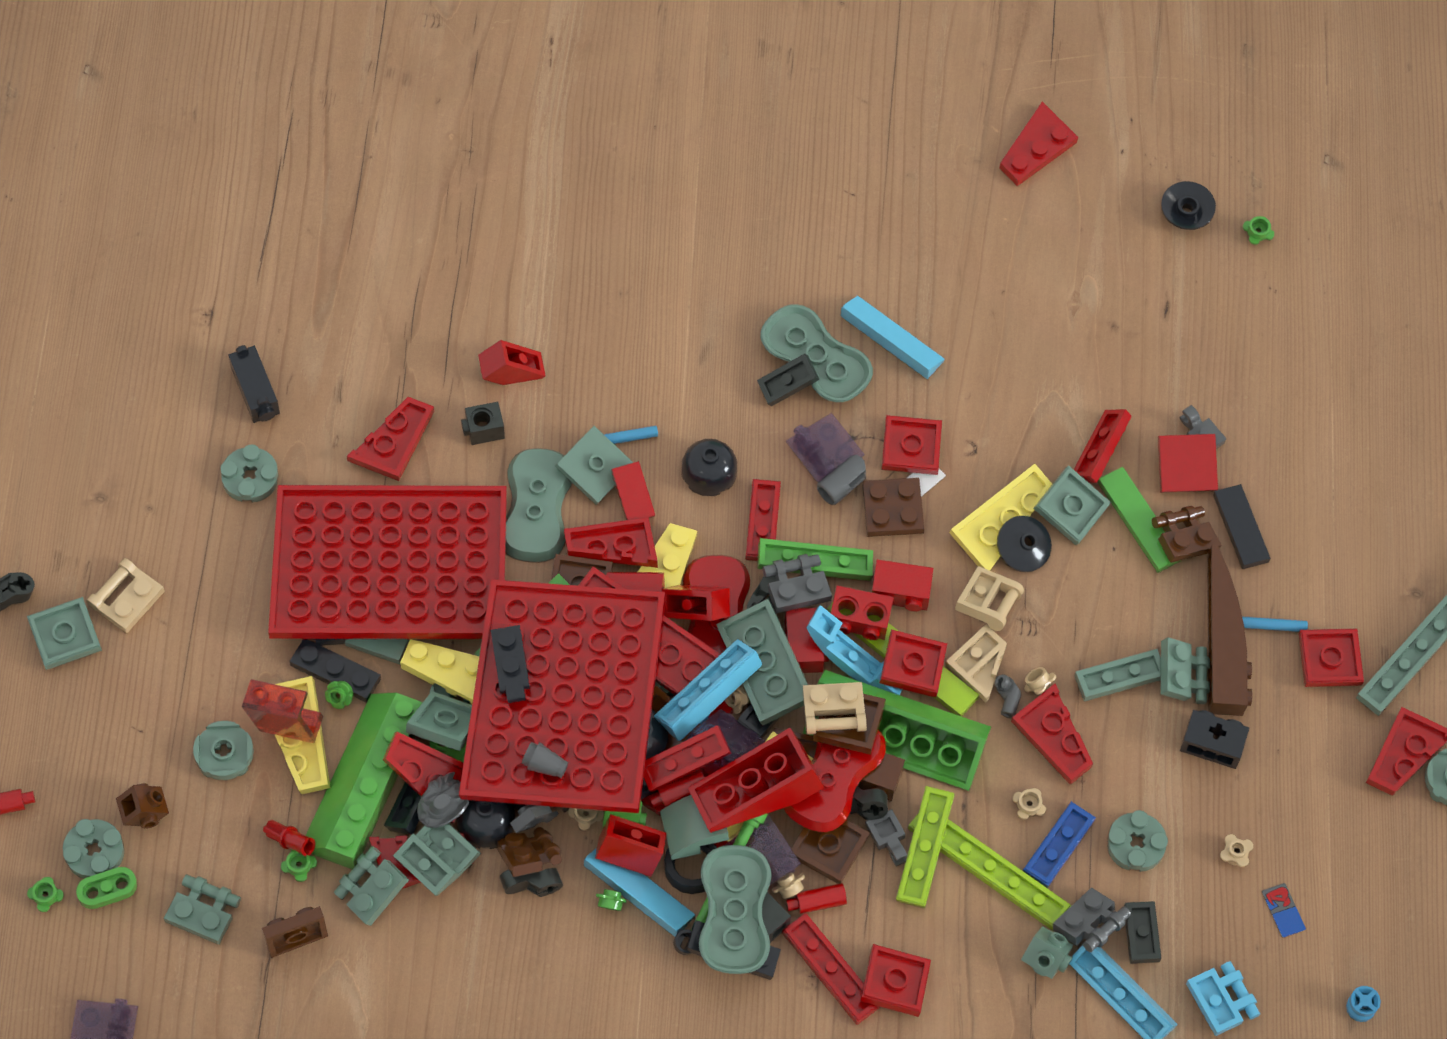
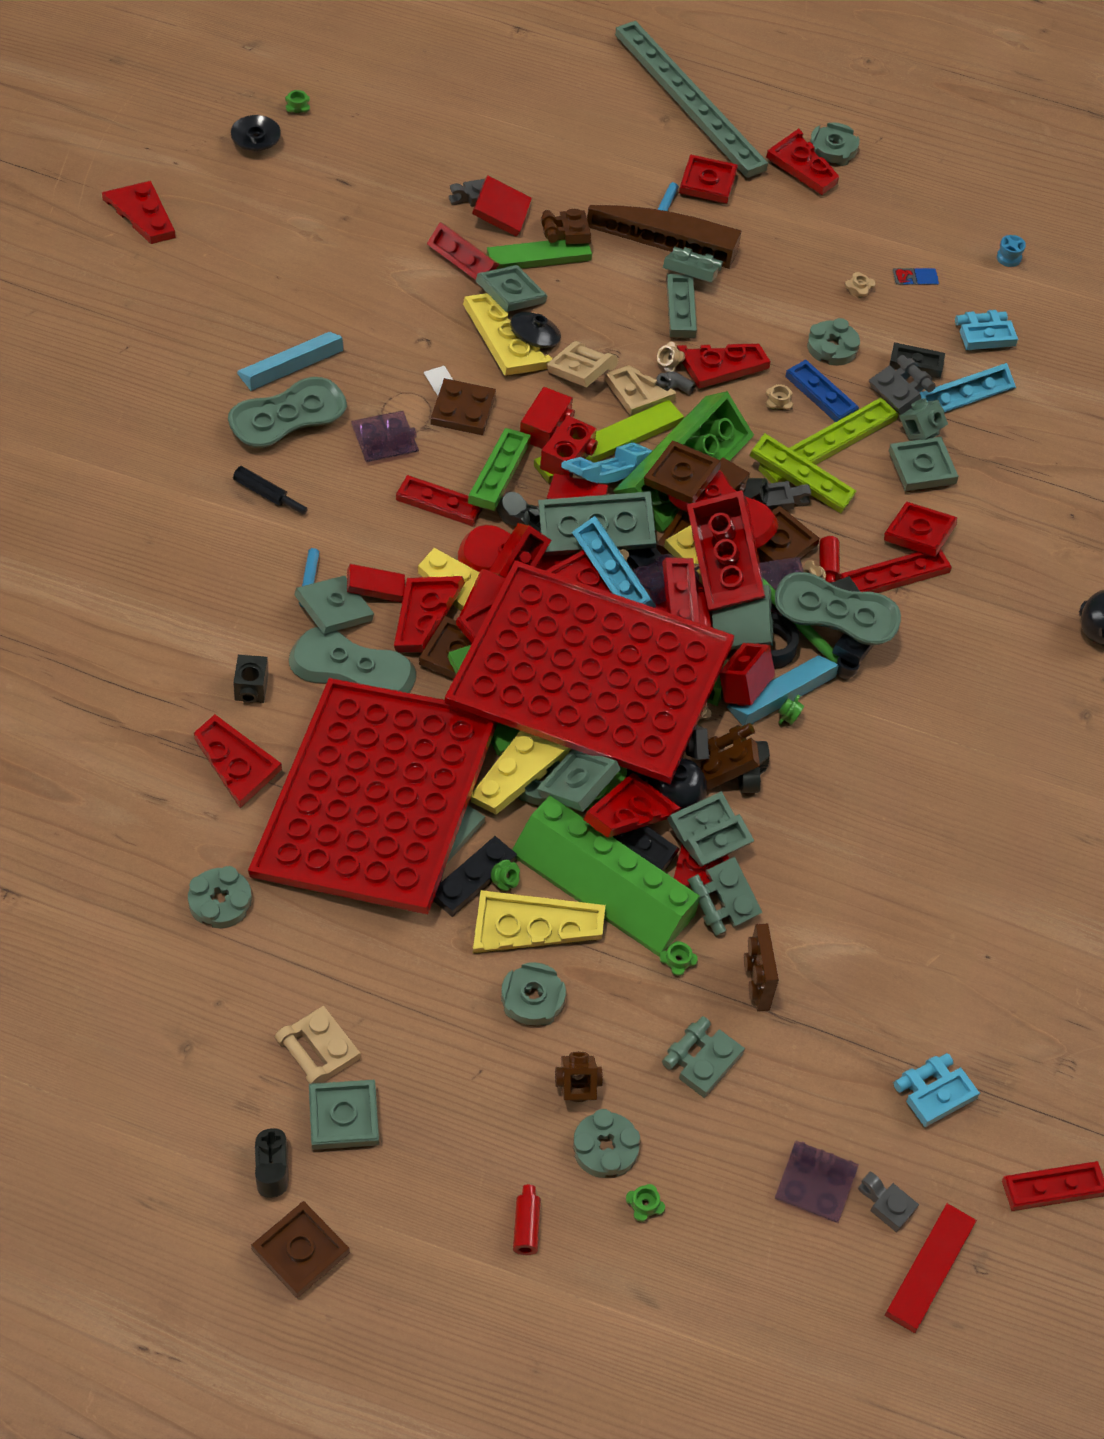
camera: 75 degrees left, 10 degrees down
(106, 886) = (657, 1141): bright green plate -> none
(254, 384) = (118, 864): black brick -> none
(281, 711) = (528, 908): clear red panel -> none
(289, 837) = (652, 954): red axle -> none
(441, 802) = (664, 802): dark grey hat -> none
(510, 364) = (193, 642): red slope -> none
(510, 662) = (546, 698): black hinge -> none
(543, 760) = (664, 692): dark grey cone -> none
(709, 467) = (370, 521): black cylinder -> none
(716, 367) = (266, 489): none -> black axle
(788, 379) = (308, 436): pearl dark grey plate -> none
(797, 591) = (534, 476): dark grey plate -> none
(834, 700) = (665, 470): tan plate -> none
(842, 480) = (428, 431): dark grey arm -> none
(911, 445) = (408, 375): red plate -> none
(913, 663) = (629, 428): red plate -> none
(990, 966) = (923, 463): none -> sand green plate
(1200, 742) = (759, 265): black brick -> none
(1241, 526) = (568, 195): black tile -> none

